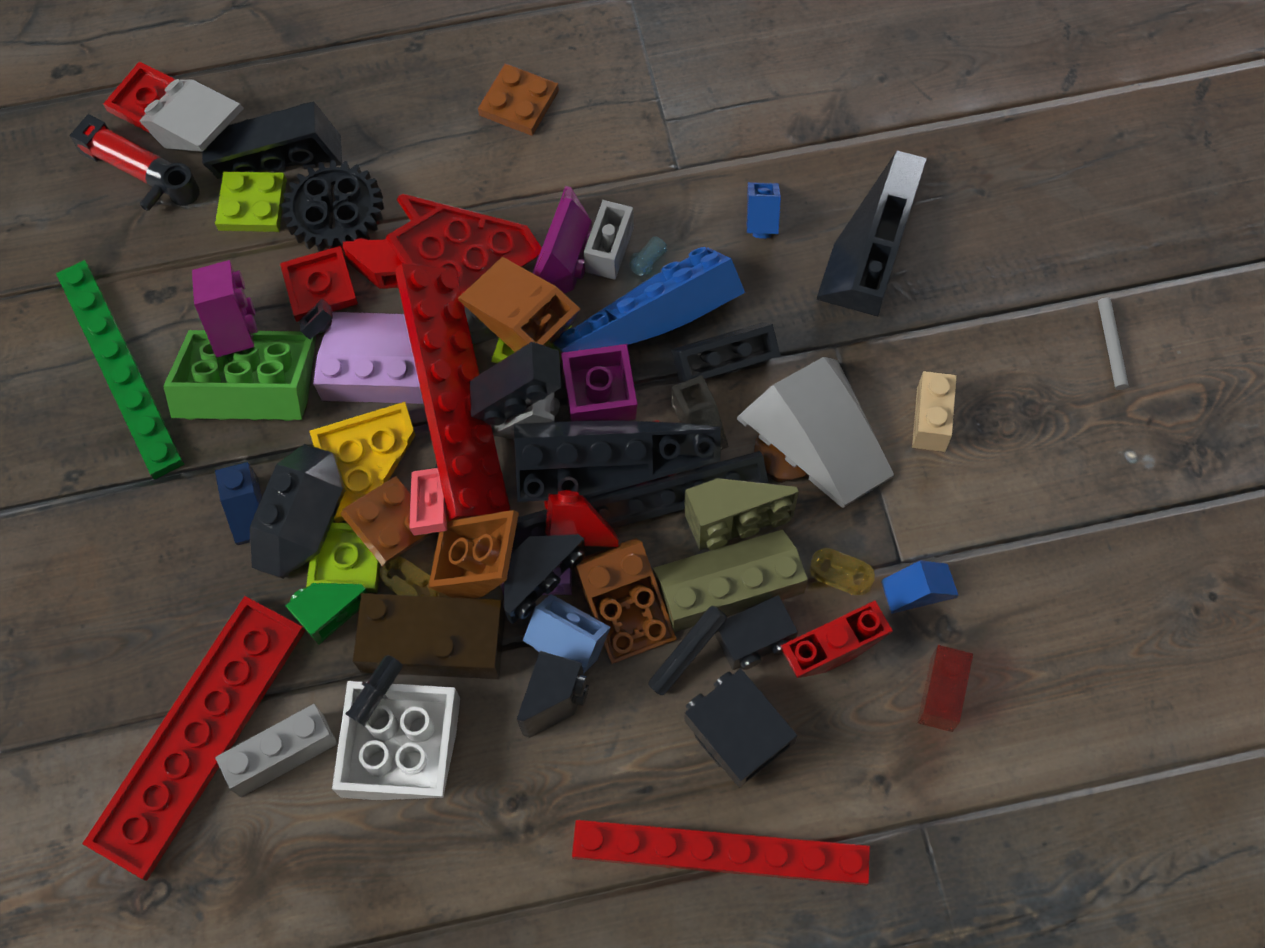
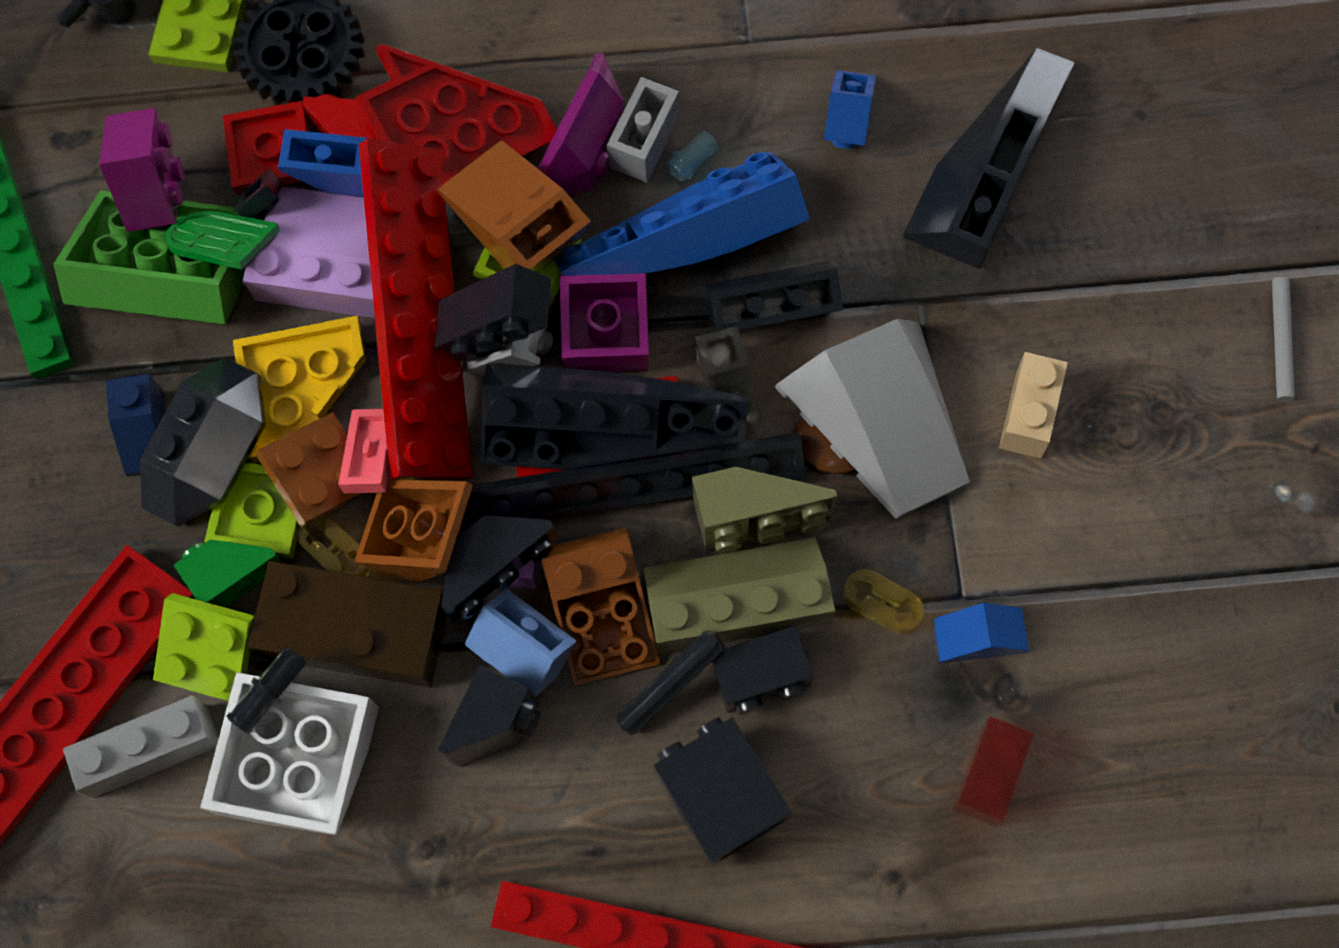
camera: 10 degrees right, 5 degrees up
(291, 353) = (219, 237): none -> green window
(315, 667) = (202, 646): none -> lime plate
(367, 288) = (323, 161): none -> blue slope
(573, 514) = (553, 495): red slope -> none
(837, 641) = (861, 694): red slope -> none

